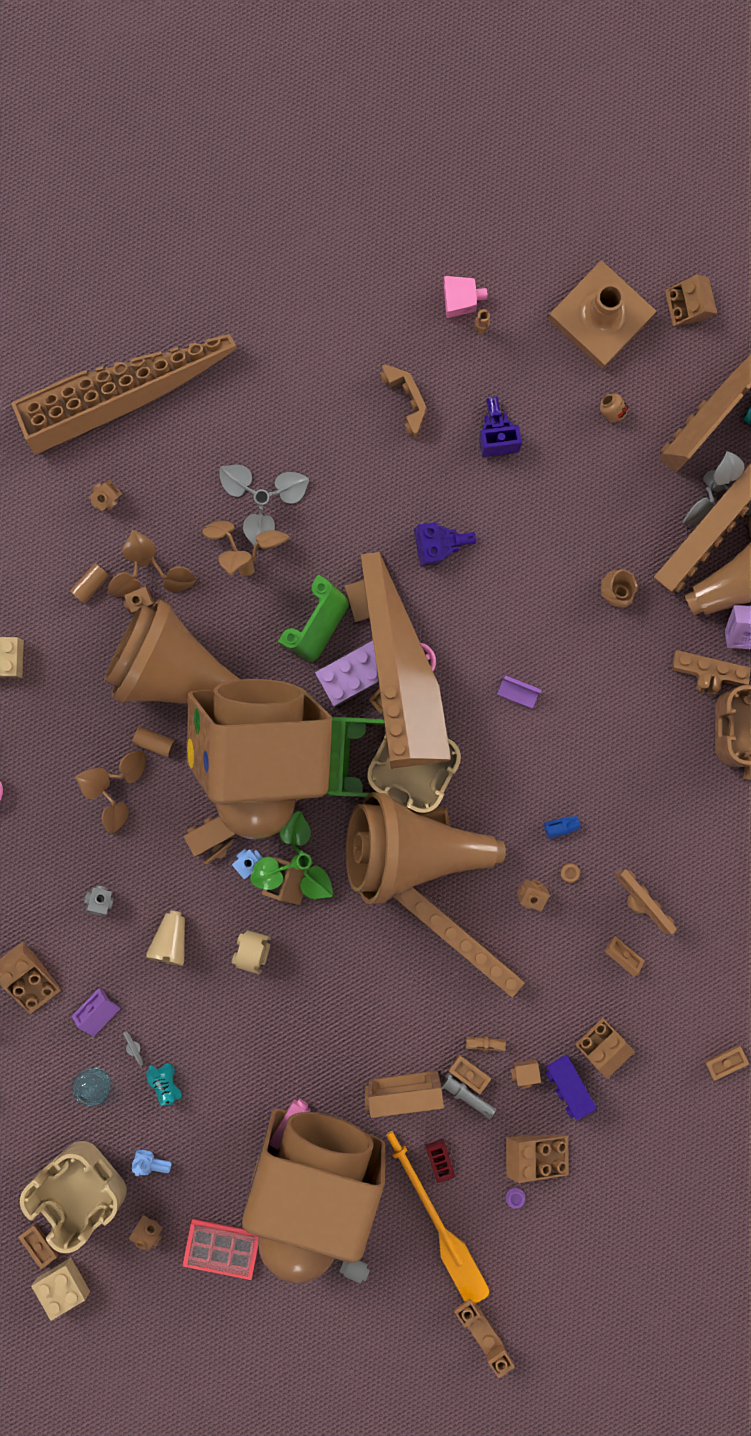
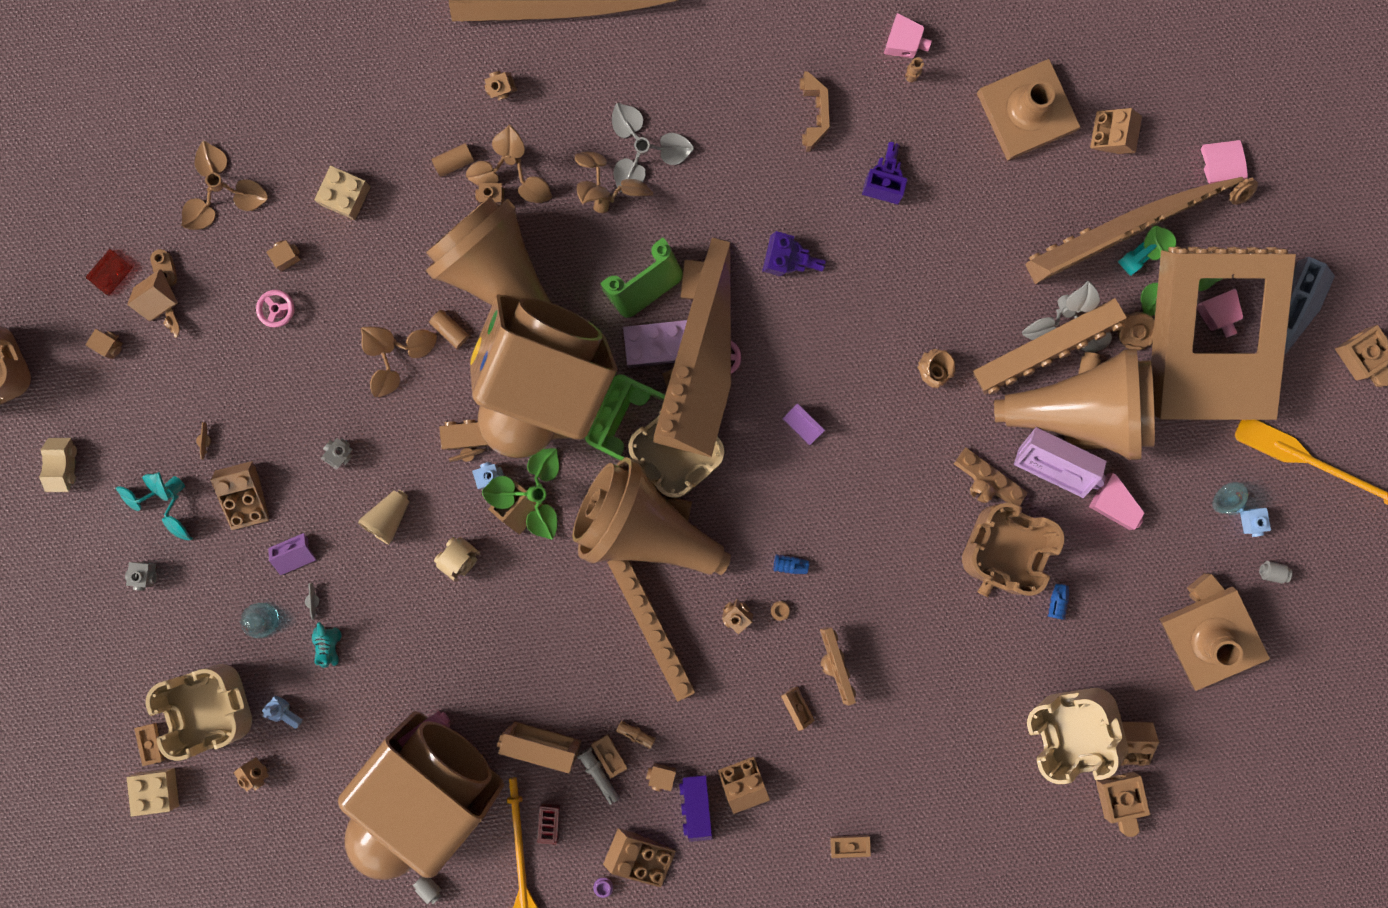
camera: 20 degrees right, 0 degrees up
(221, 1249) = (313, 818): clear piece -> none
(613, 407) = (1002, 199): medium nougat head -> none

